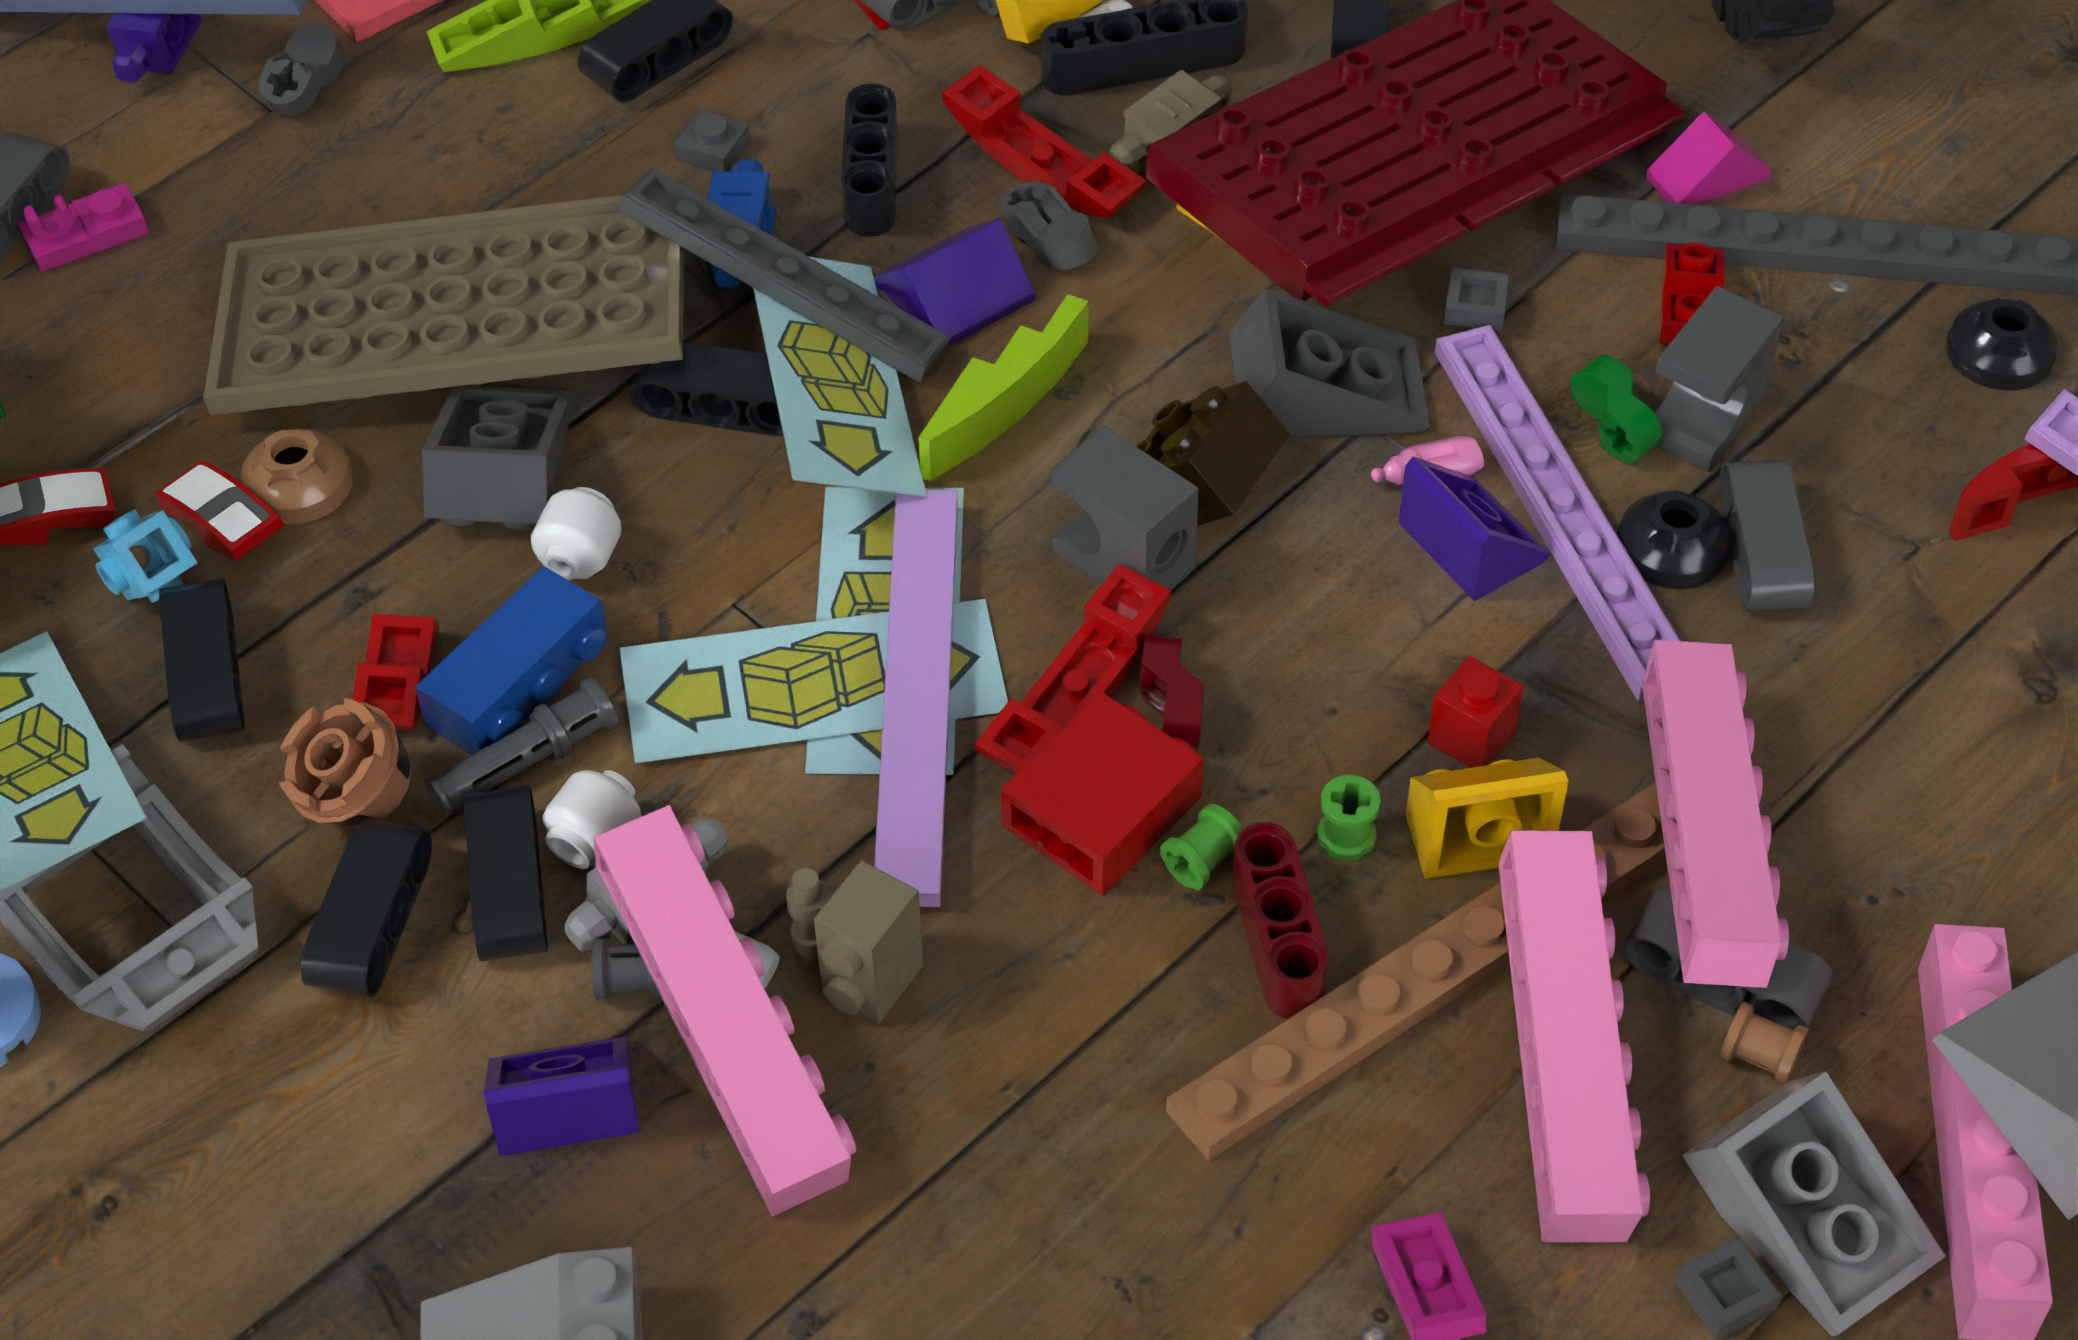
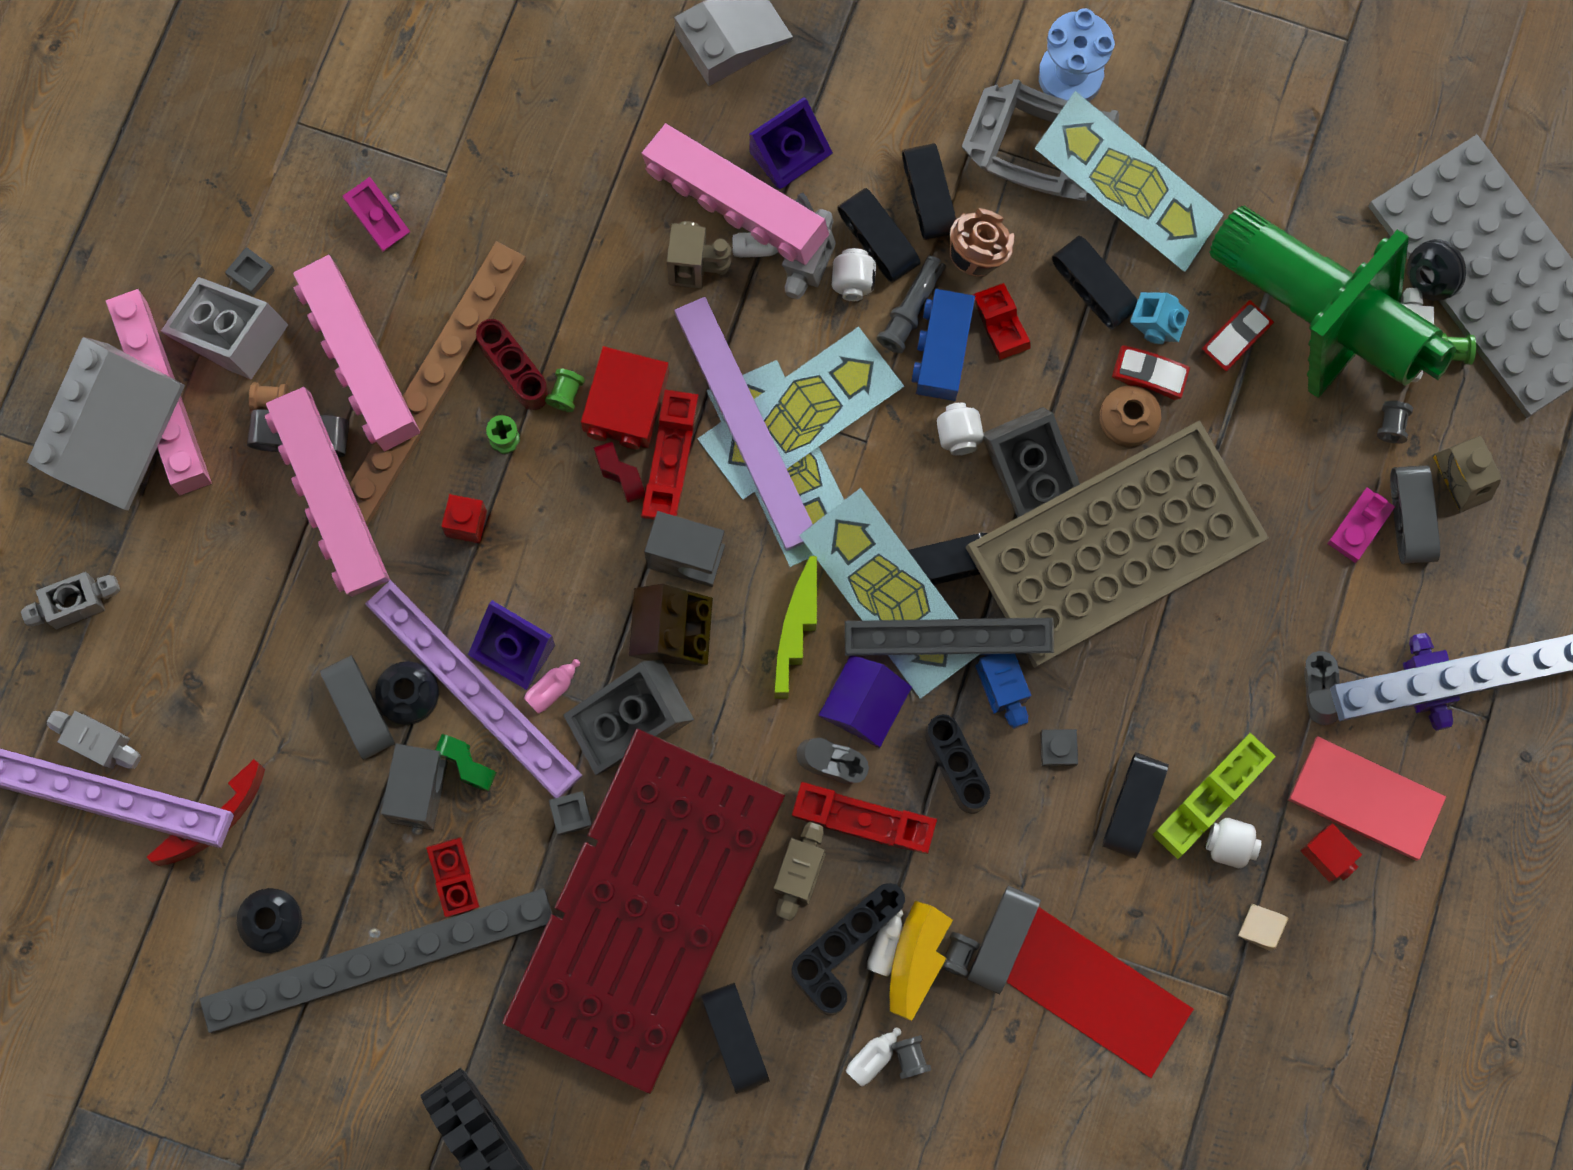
camera: 150 degrees right, 25 degrees up
(1468, 813) = (438, 458): yellow slope -> none
(1706, 164) = (475, 991): dark pink slope -> none

